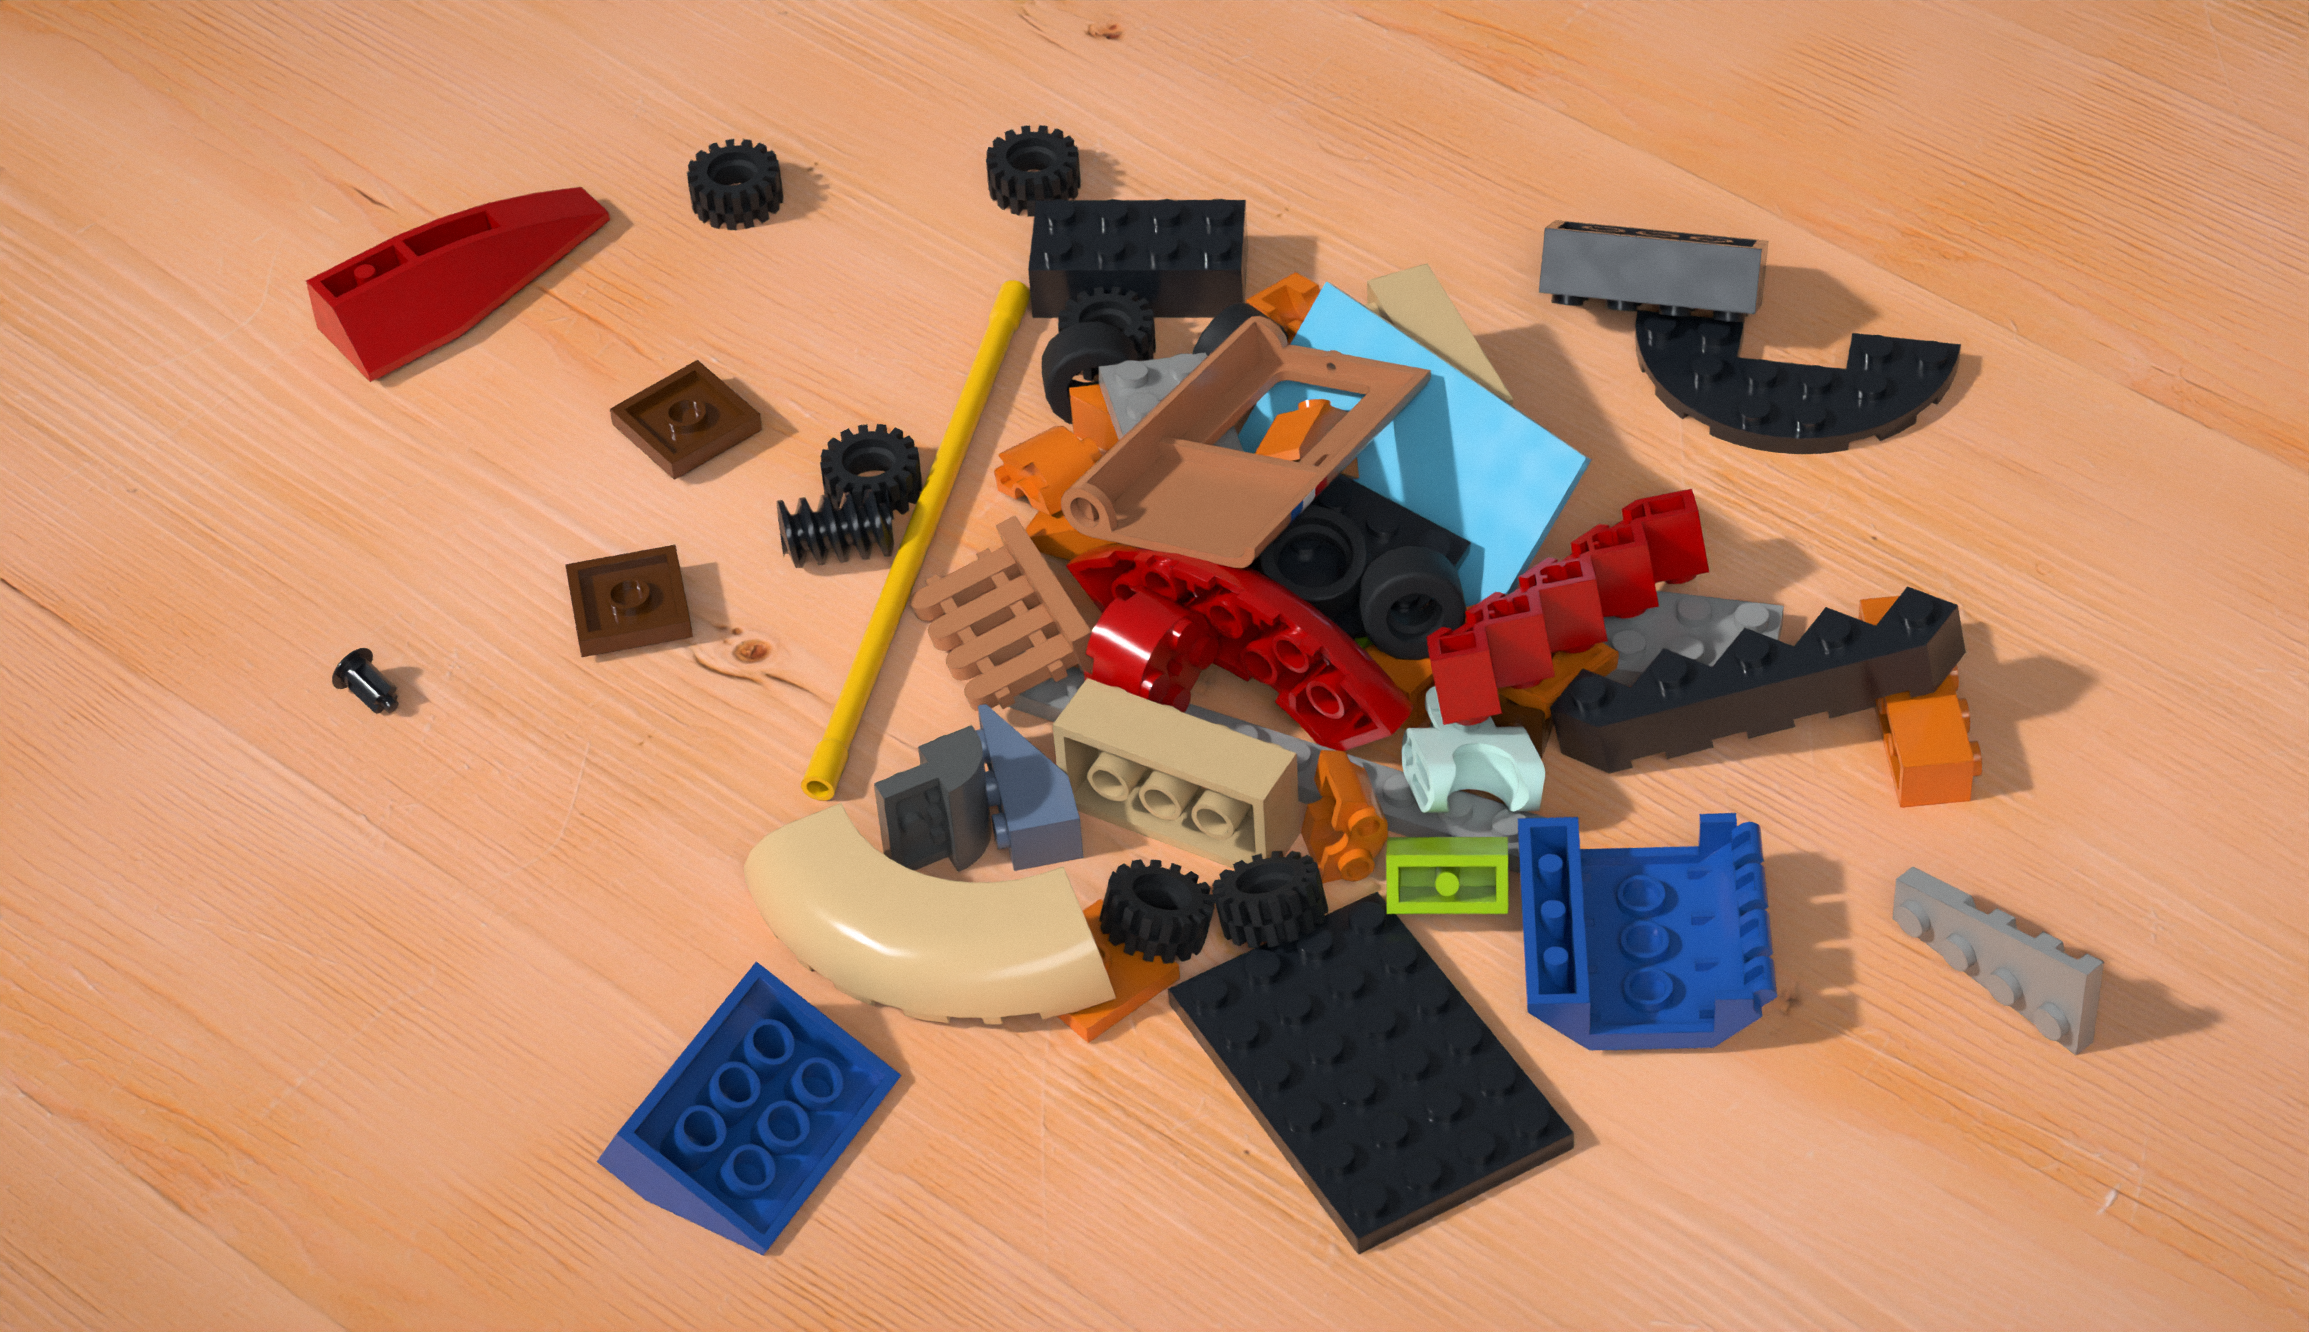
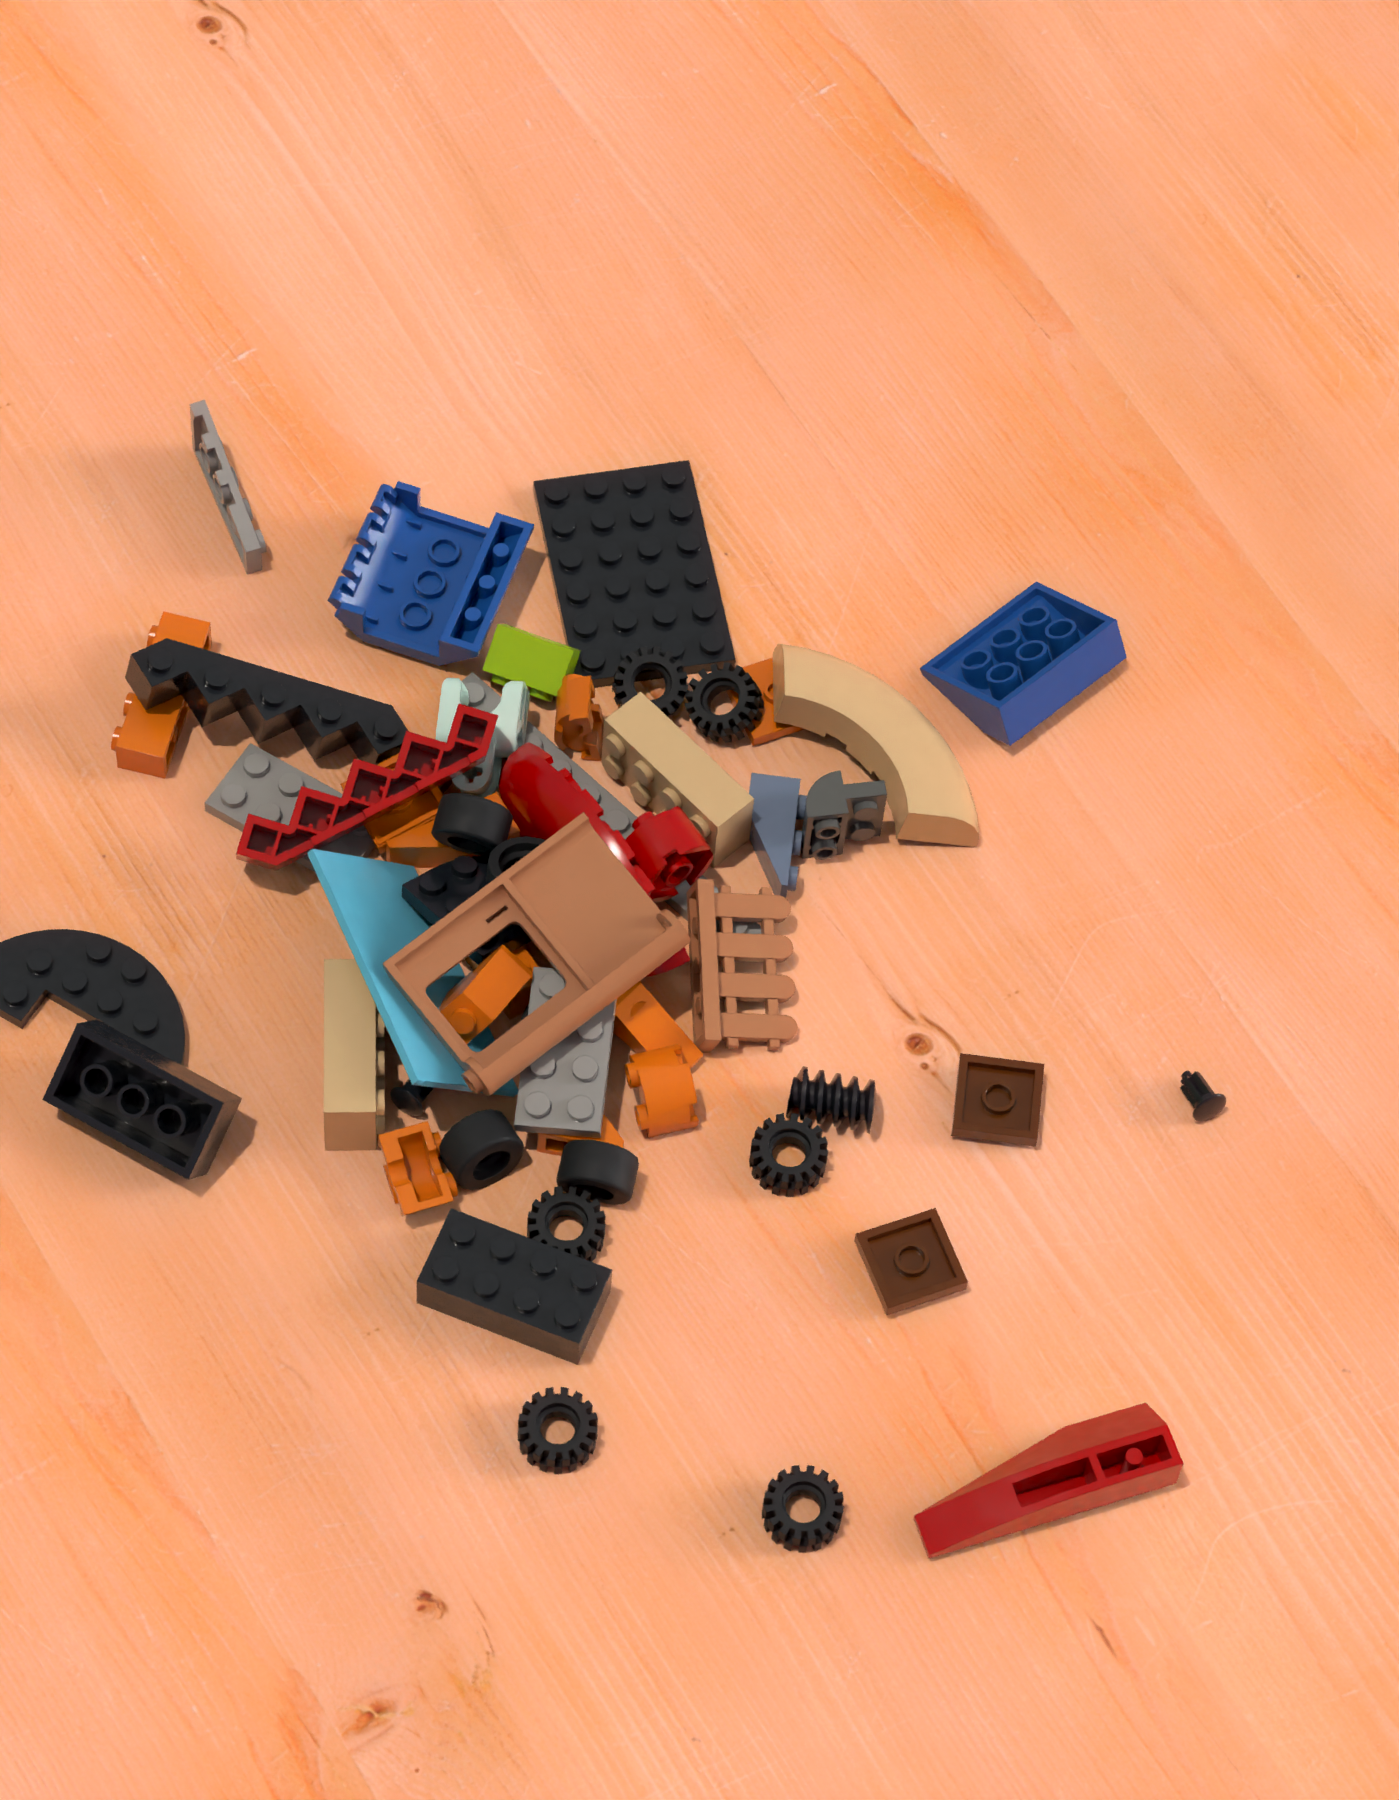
camera: 170 degrees left, 15 degrees up
(832, 751) = (638, 1276): yellow piece -> none

